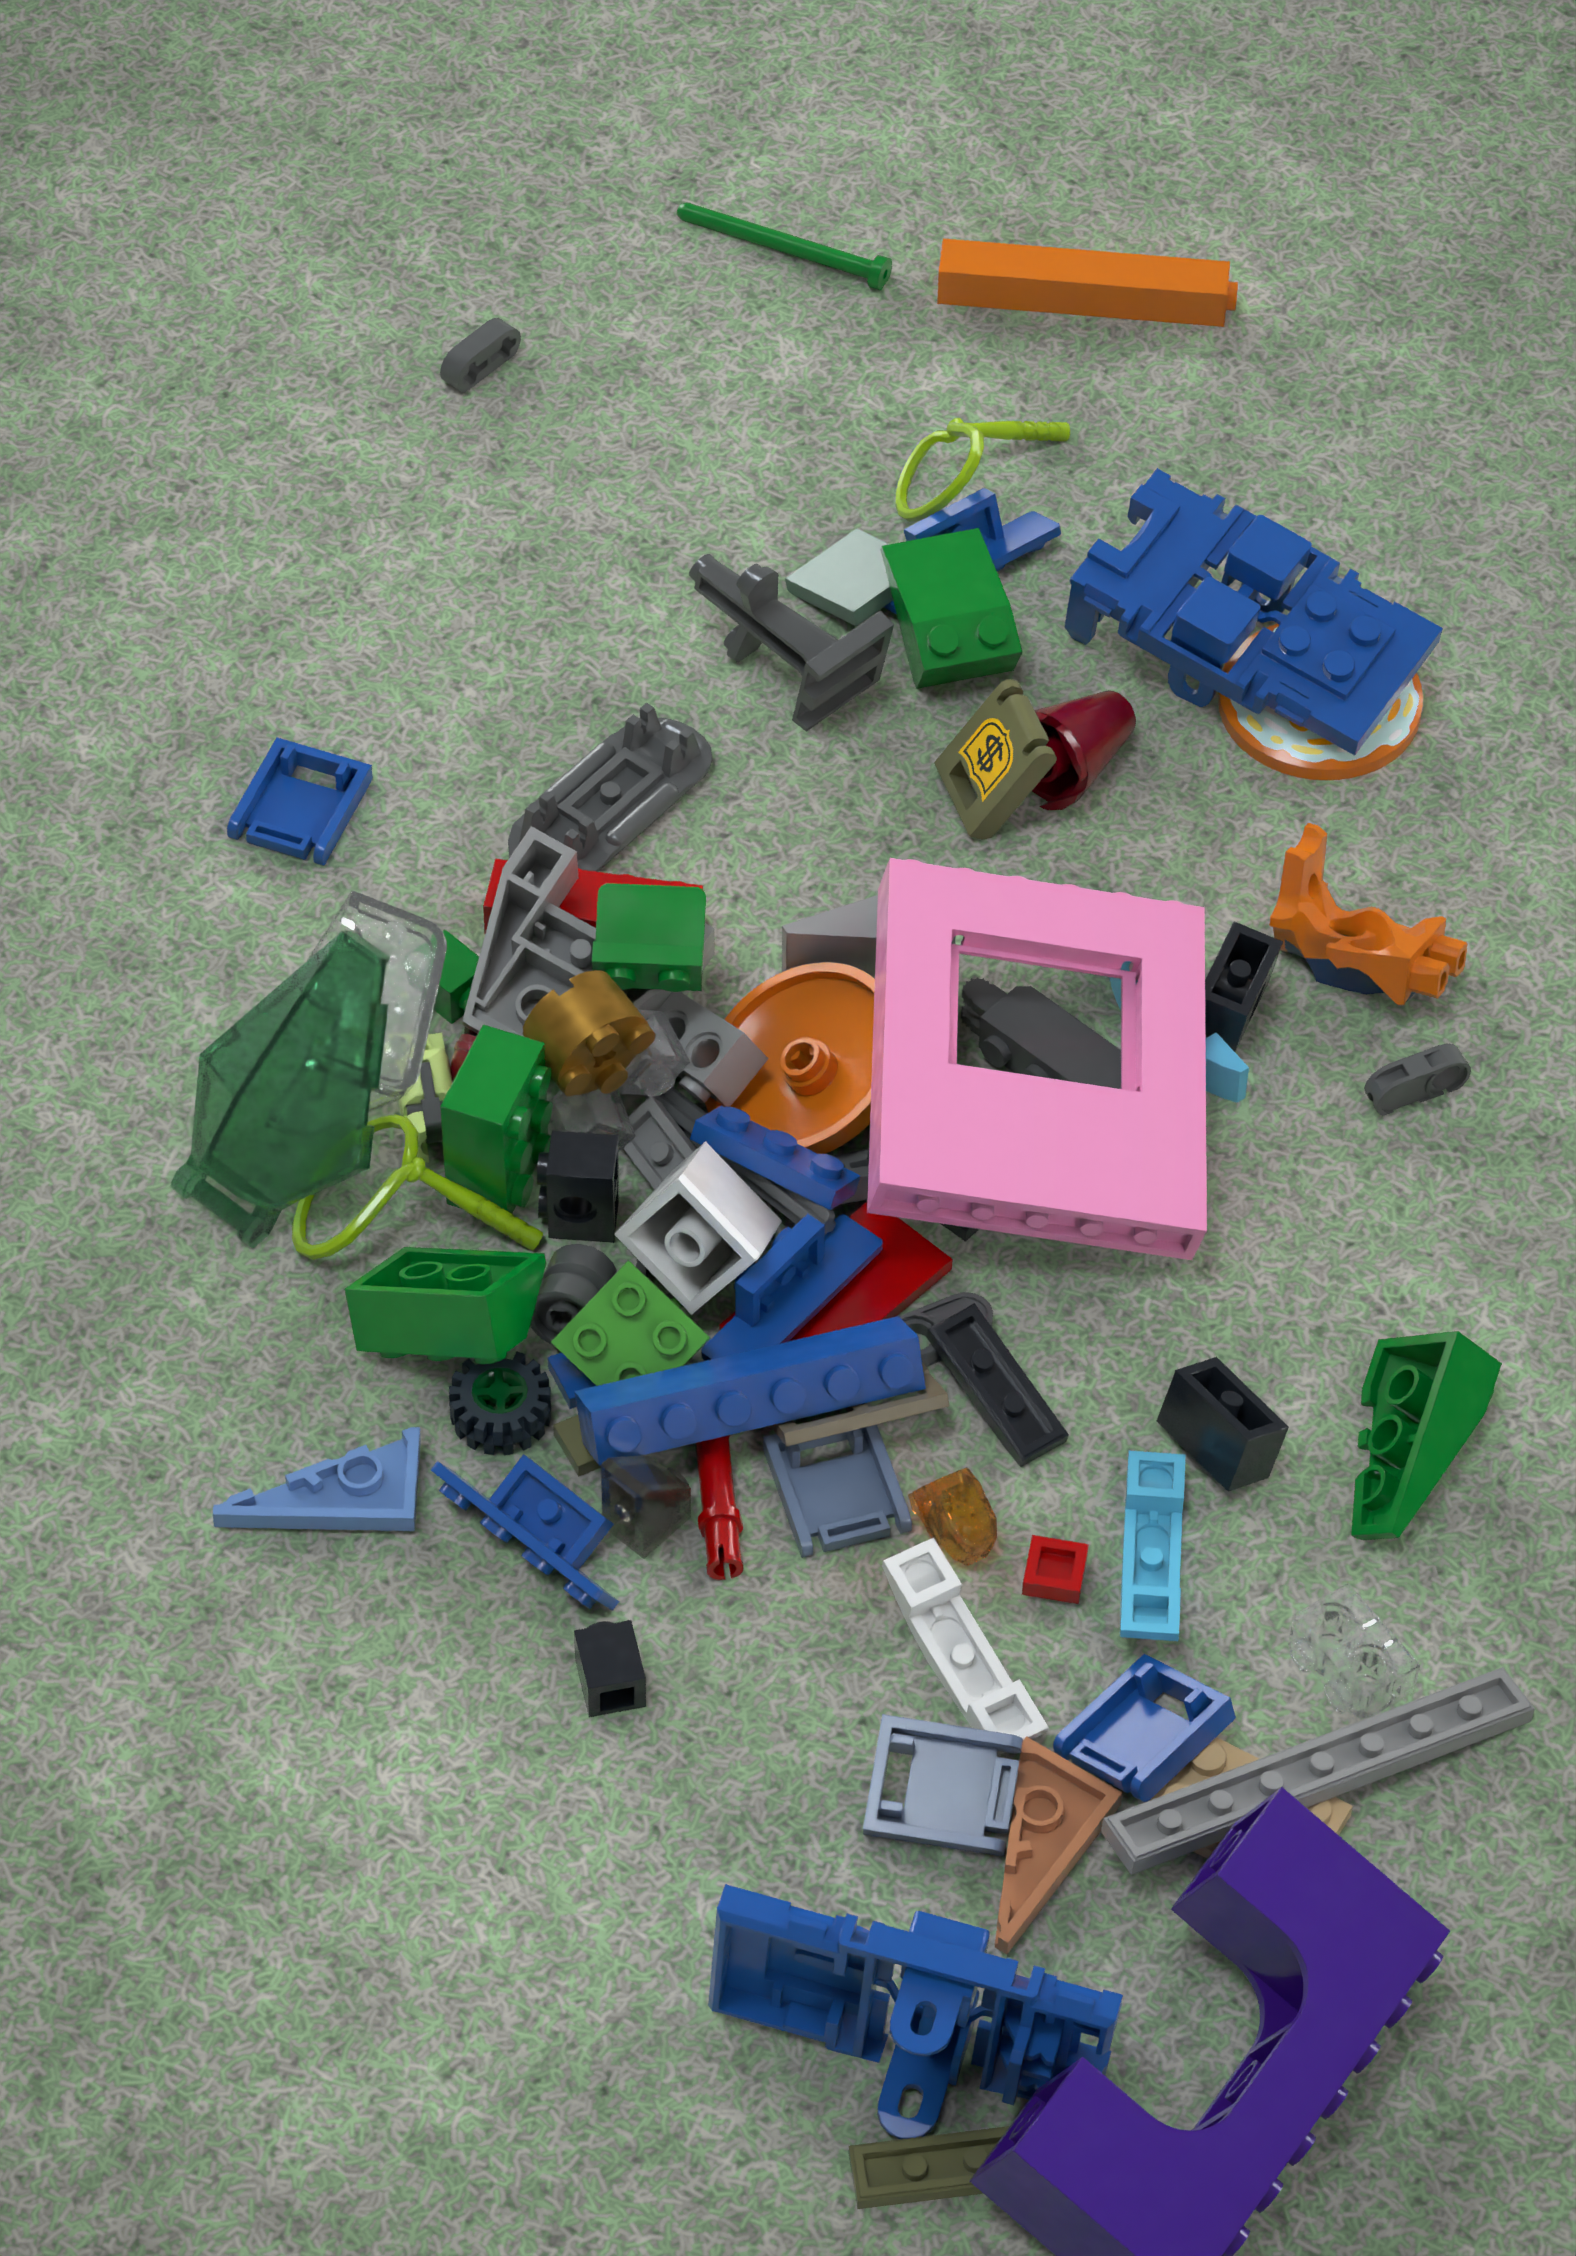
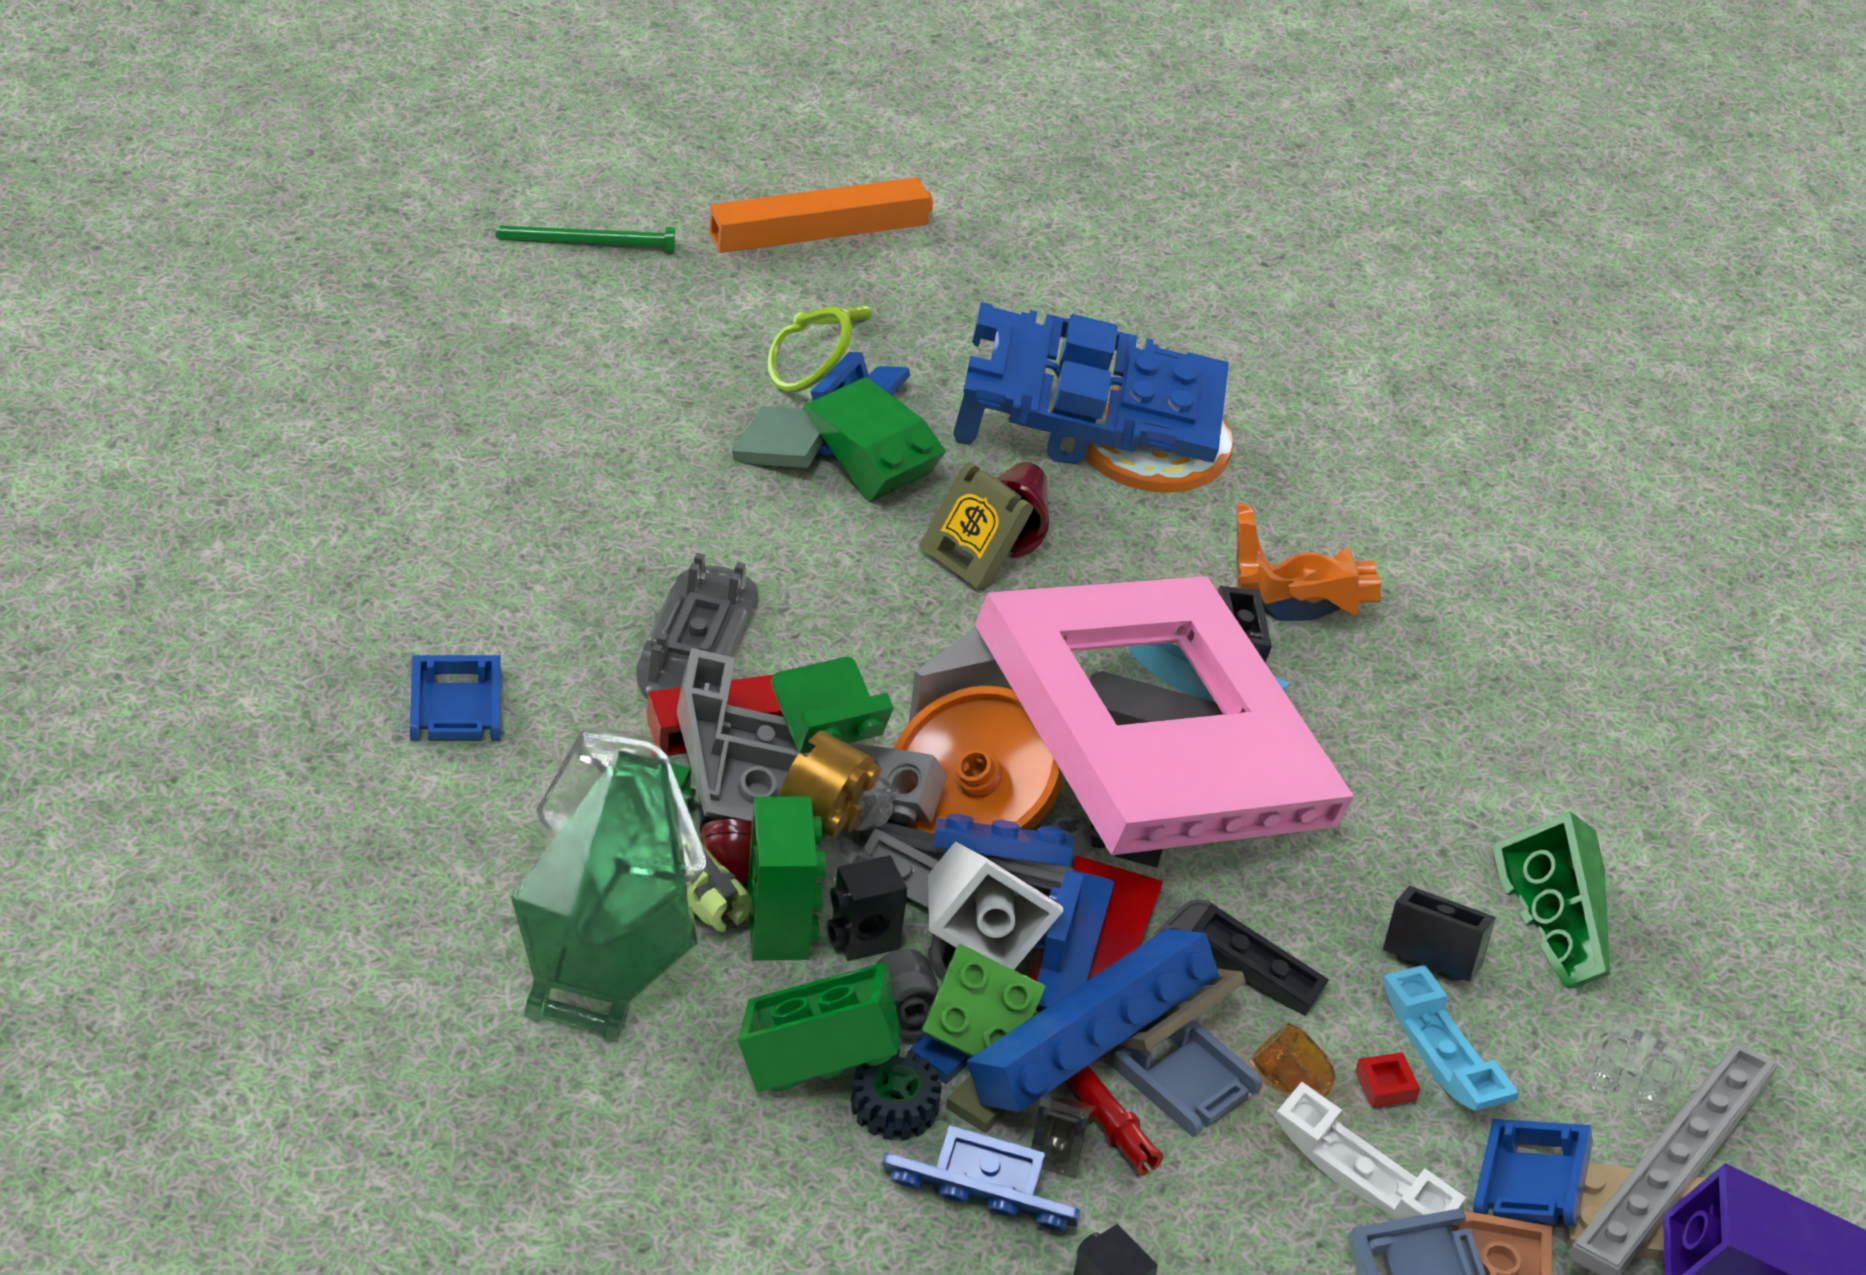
camera: 30 degrees left, 10 degrees down
(344, 1493) = (821, 1204): medium blue wing -> none
(412, 1169) = (733, 934): lime piece -> none
(480, 354) = (409, 355): dark grey beam -> none
(829, 667) = (808, 493): dark grey piece -> none
(1417, 1078) = (1395, 661): dark grey piece -> none

